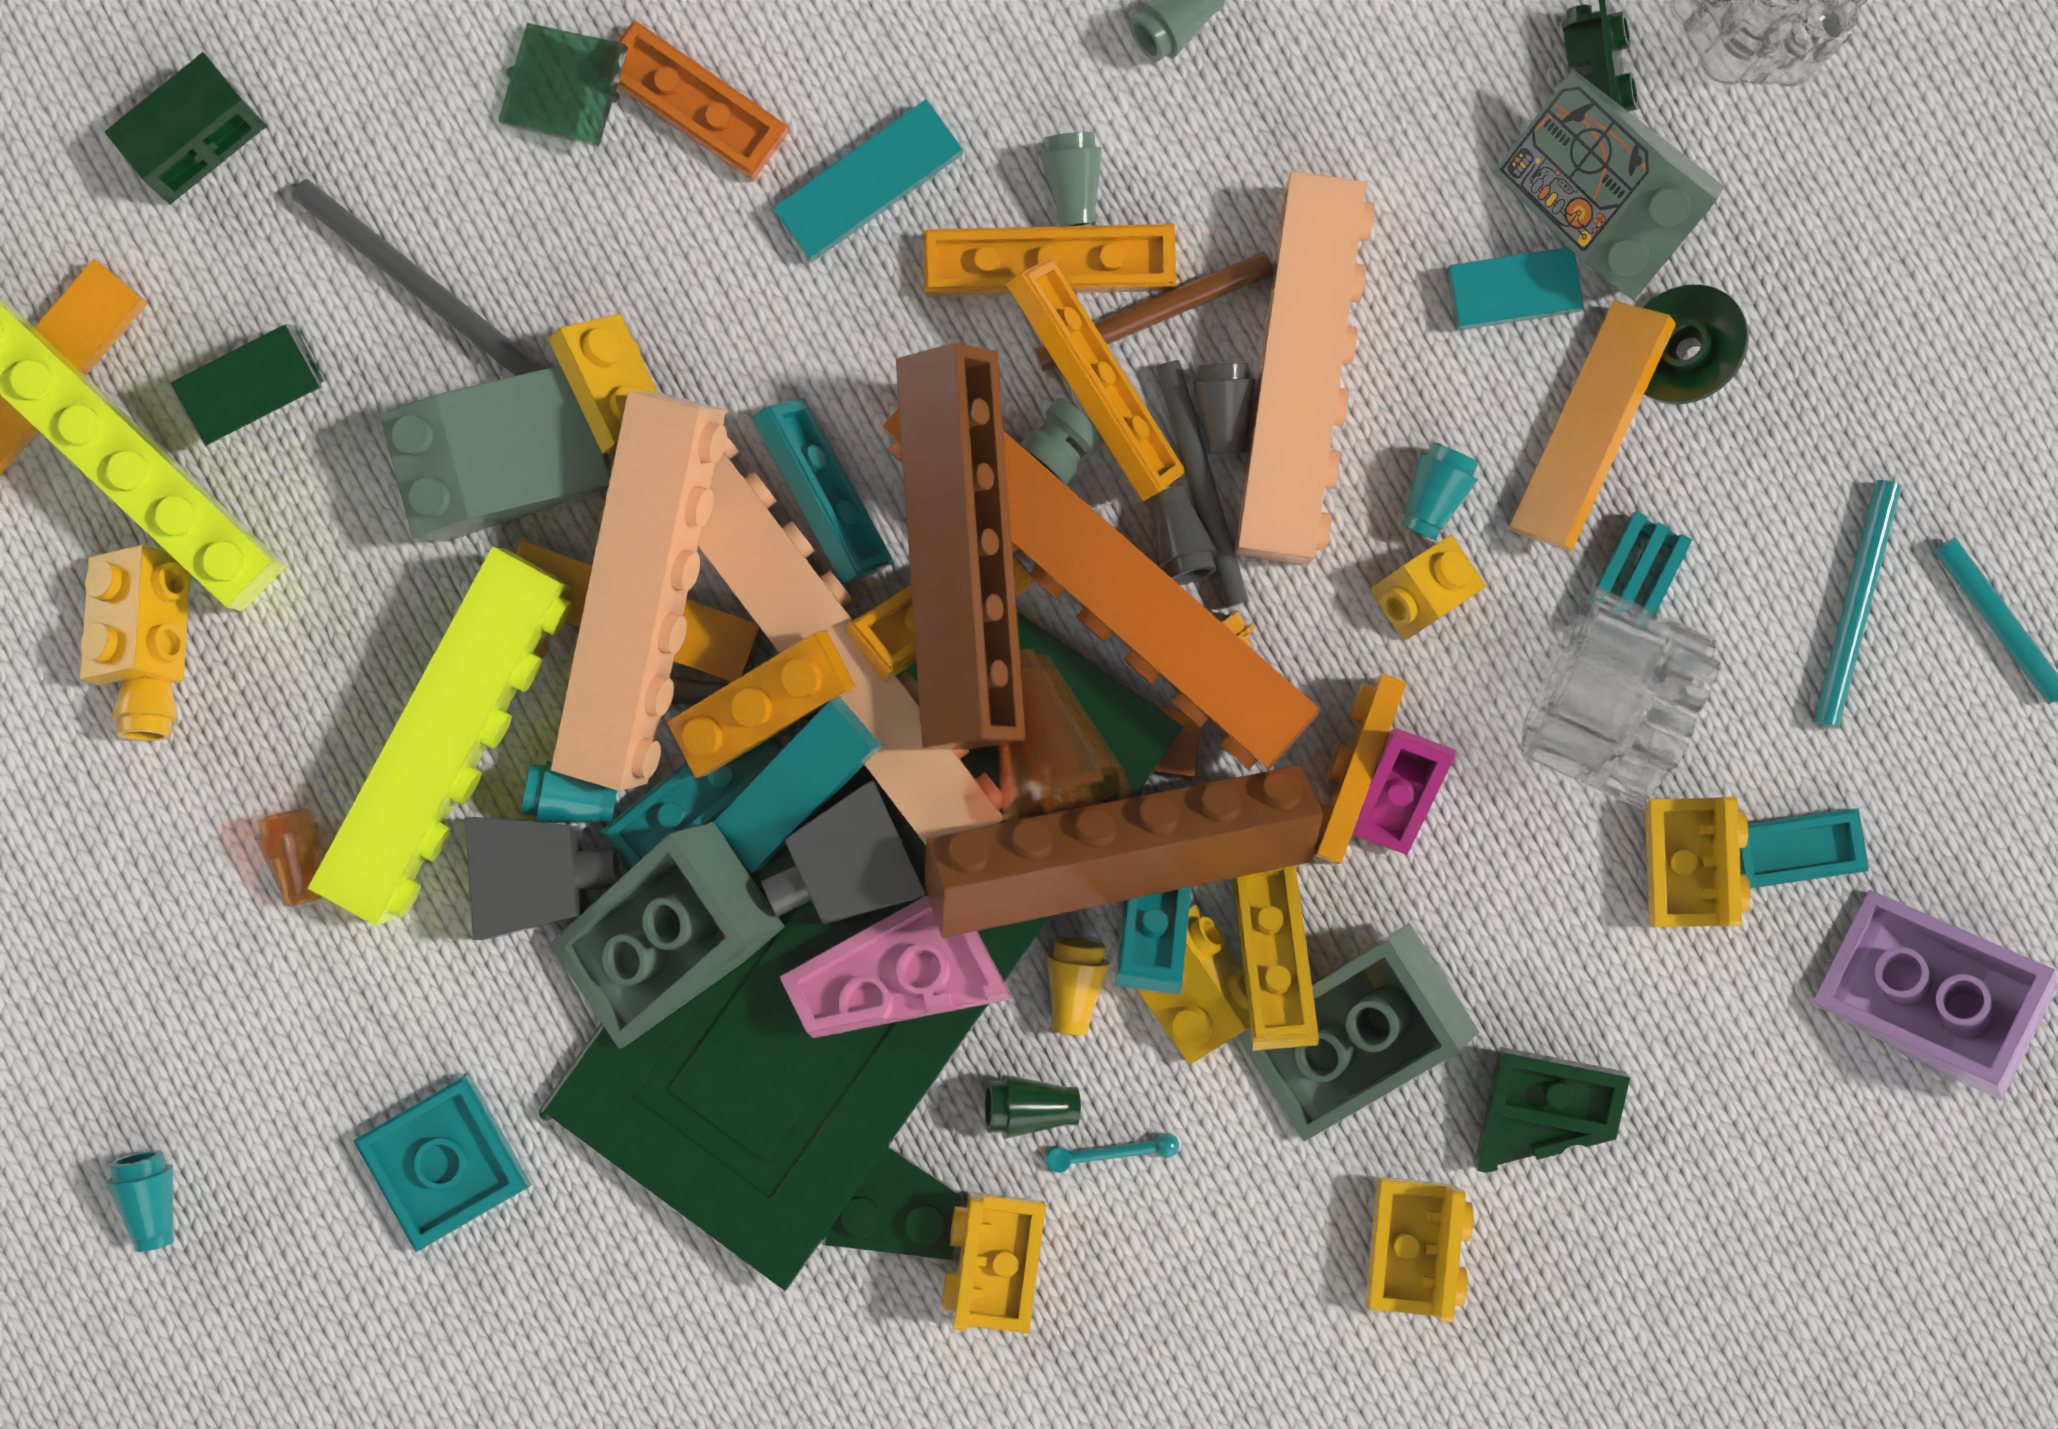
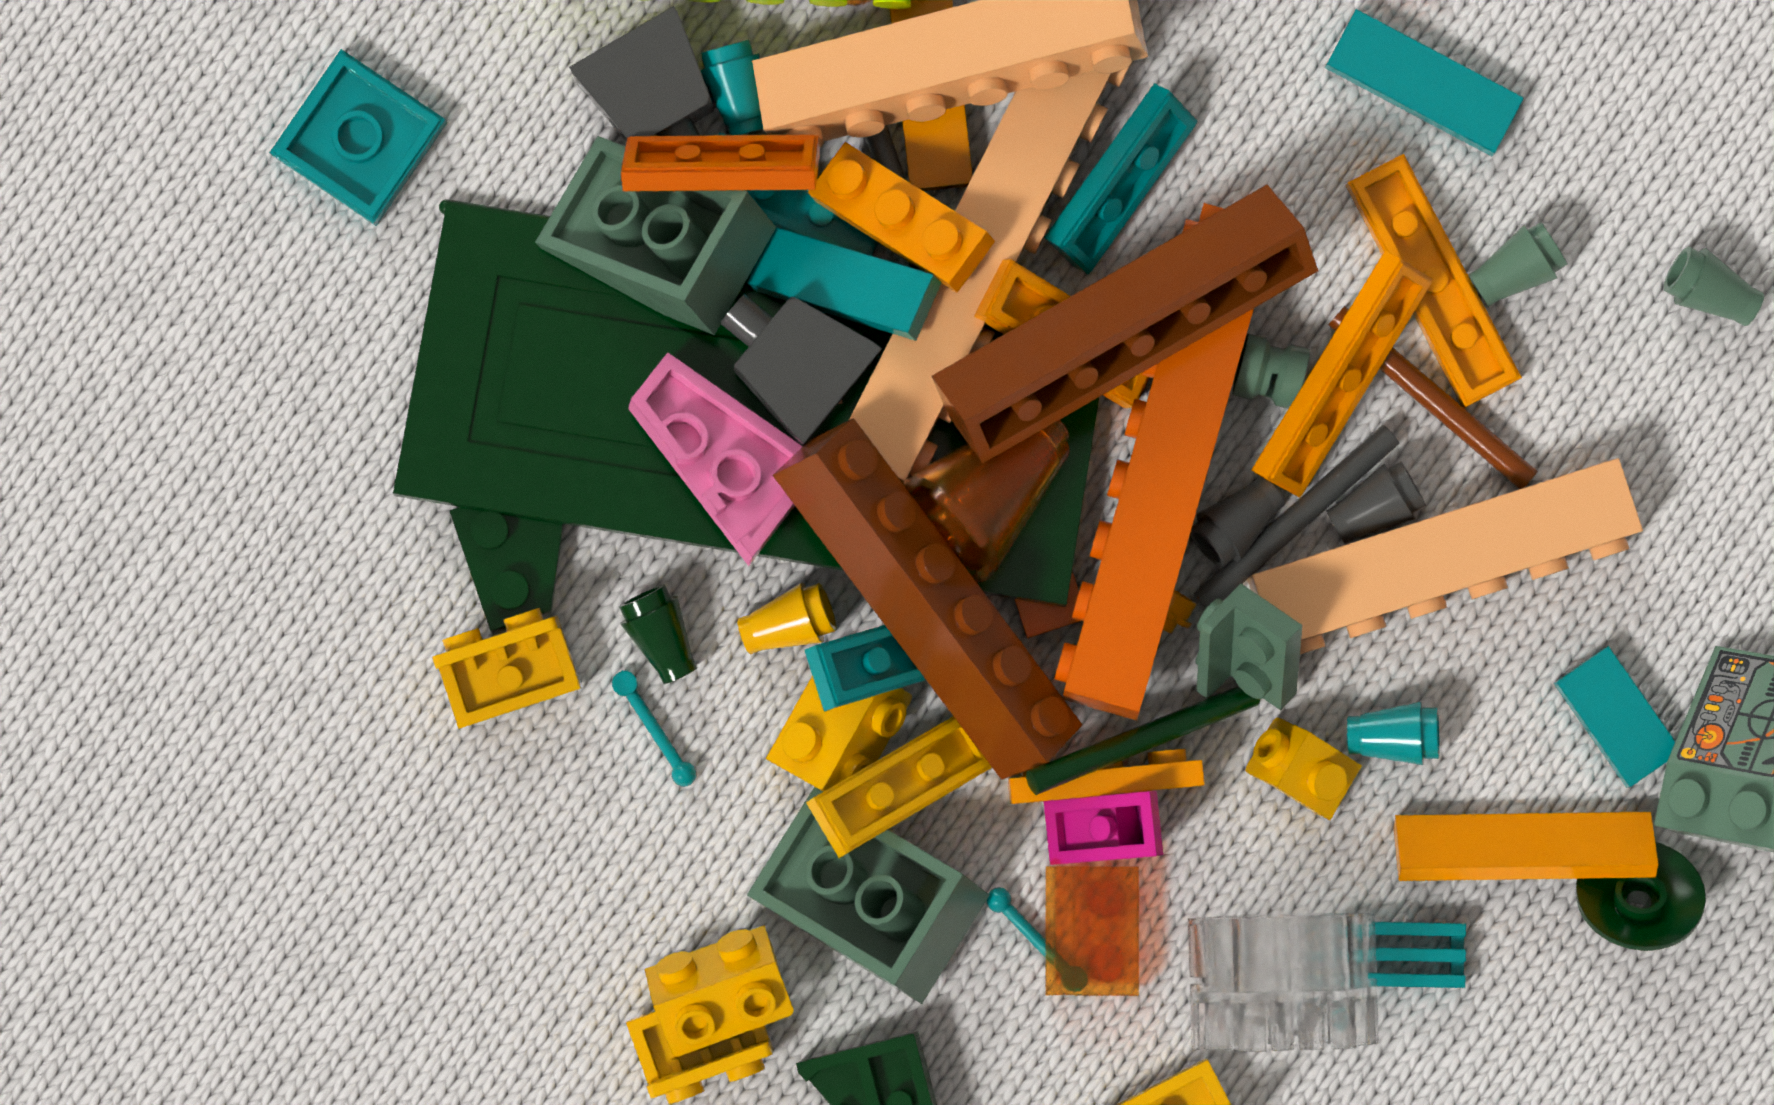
camera: 70 degrees right, 0 degrees up
(630, 845) = (720, 163): none -> orange tile
(1302, 576) = (1250, 643): none -> sand green bracket
(1337, 718) = (1139, 739): none -> dark green bar
(1380, 1211) = (718, 990): none -> yellow bracket
(1484, 846) = (1092, 930): none -> clear orange plate
(1515, 884) = (1000, 901): none -> teal hinge

